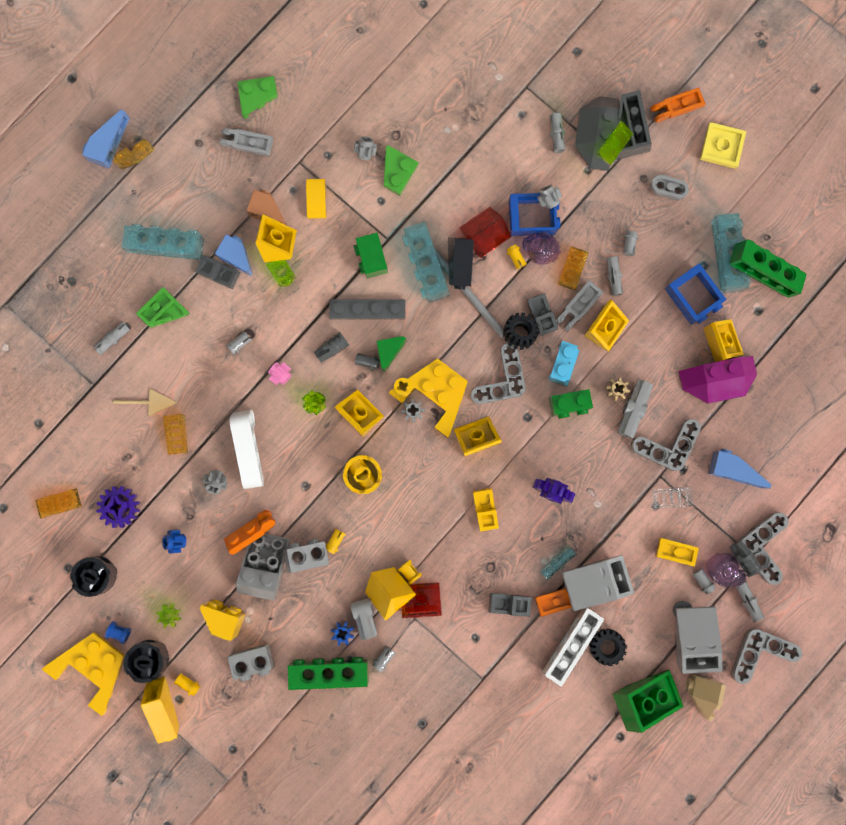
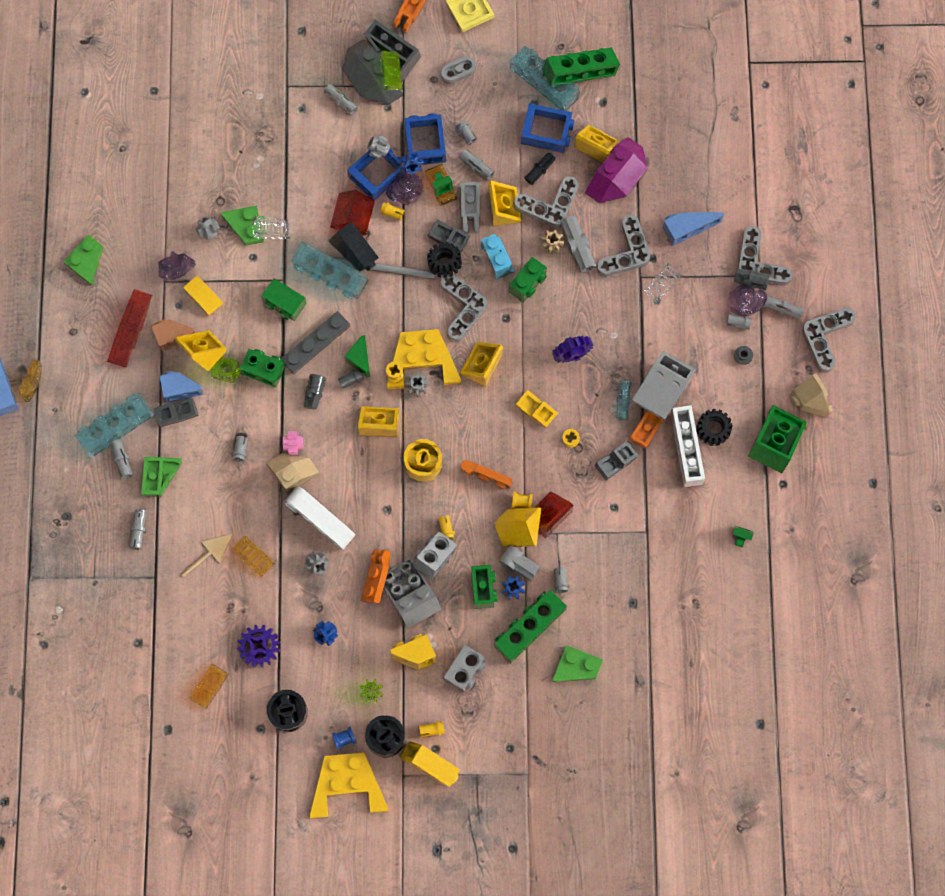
camera: 40 degrees left, 10 degrees down
(146, 273) = (121, 459): none -> light grey pin
(239, 176) = (129, 328): none -> clear red slope
(248, 141) = (110, 298): light grey hinge -> none
(261, 393) = (292, 470): none -> tan slope
(309, 294) = (262, 367): none -> green brick
(314, 402) = (338, 441): clear neon green gear -> none
(315, 157) = (175, 266): none -> clear purple hair
(319, 612) = (482, 585): none -> green brick
(336, 734) = (577, 666): none -> bright green wing
(400, 526) = (484, 474): none -> orange hinge
(404, 191) = (262, 220): none -> clear slope
(492, 549) = (574, 442): none -> yellow bush
(551, 750) = (742, 534): none -> green tile
(562, 237) = (410, 157): none -> blue gear
(572, 270) = (441, 184): none -> green tile
(583, 237) = (429, 156): none -> blue window
(643, 364) = (554, 209): none -> light grey beam
(661, 322) = (540, 168): none -> black axle
(677, 552) = (701, 318): yellow plate -> none
(698, 640) = (771, 363): light grey slope -> none

